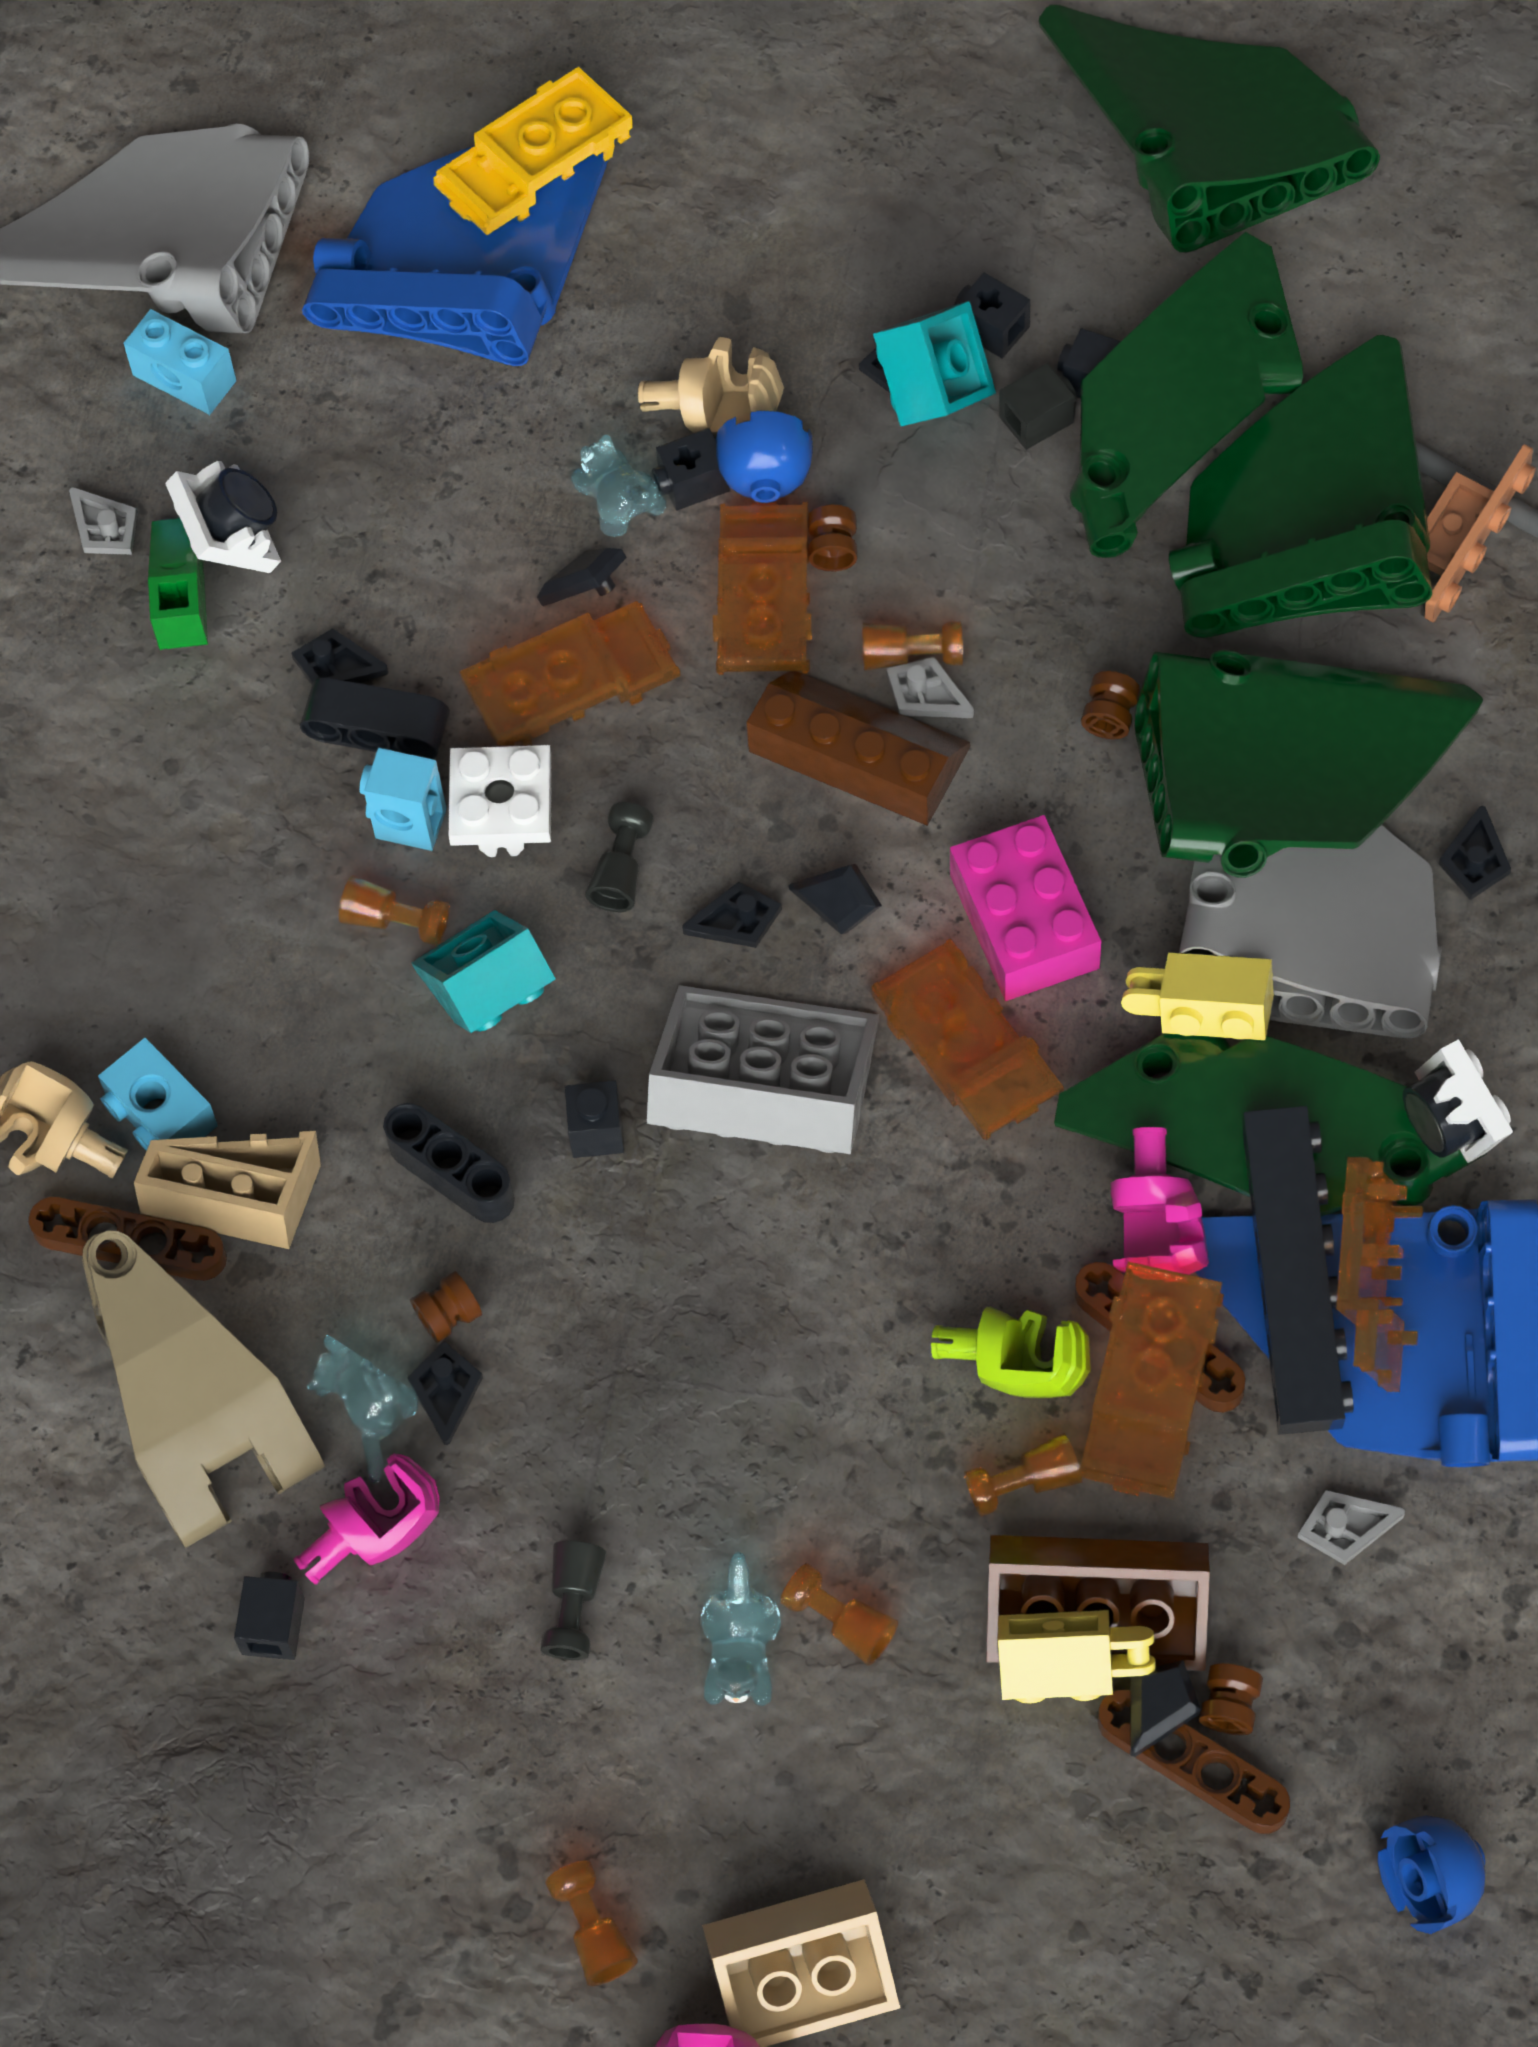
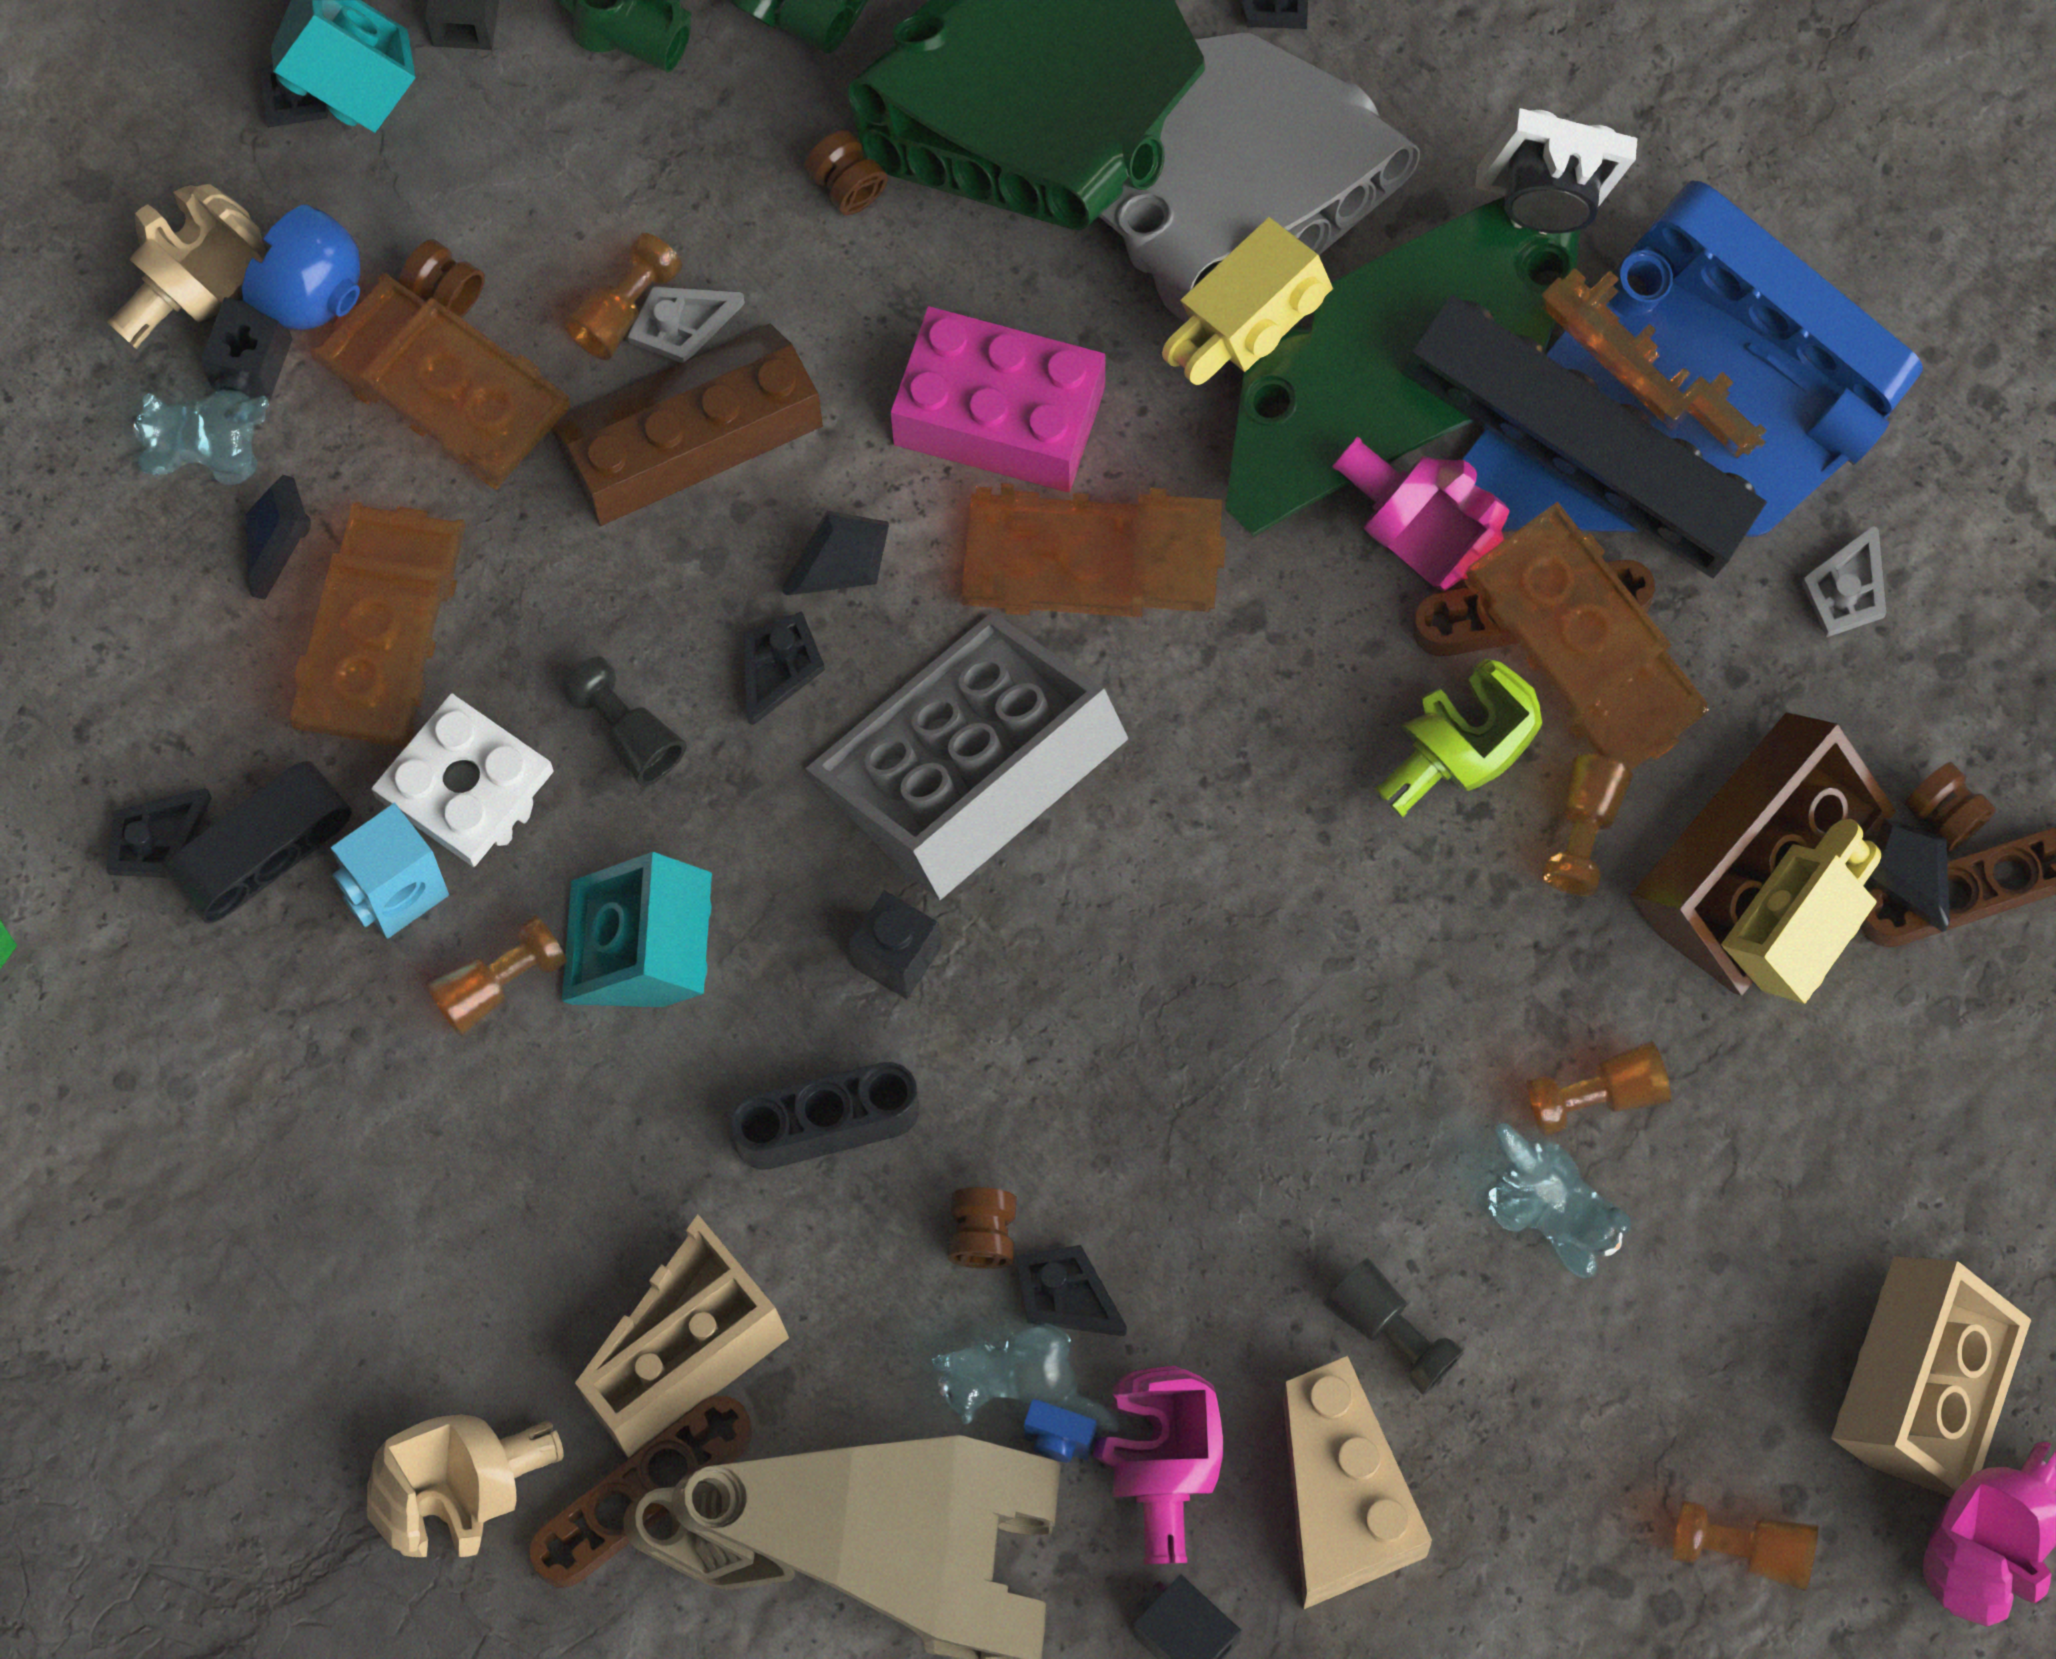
camera: 55 degrees left, 5 degrees up
(145, 1076) = (481, 1336): medium azure brick -> none
(343, 1447) = (1059, 1432): none -> blue plate
(436, 1642) = (1346, 1487): none -> tan wedge

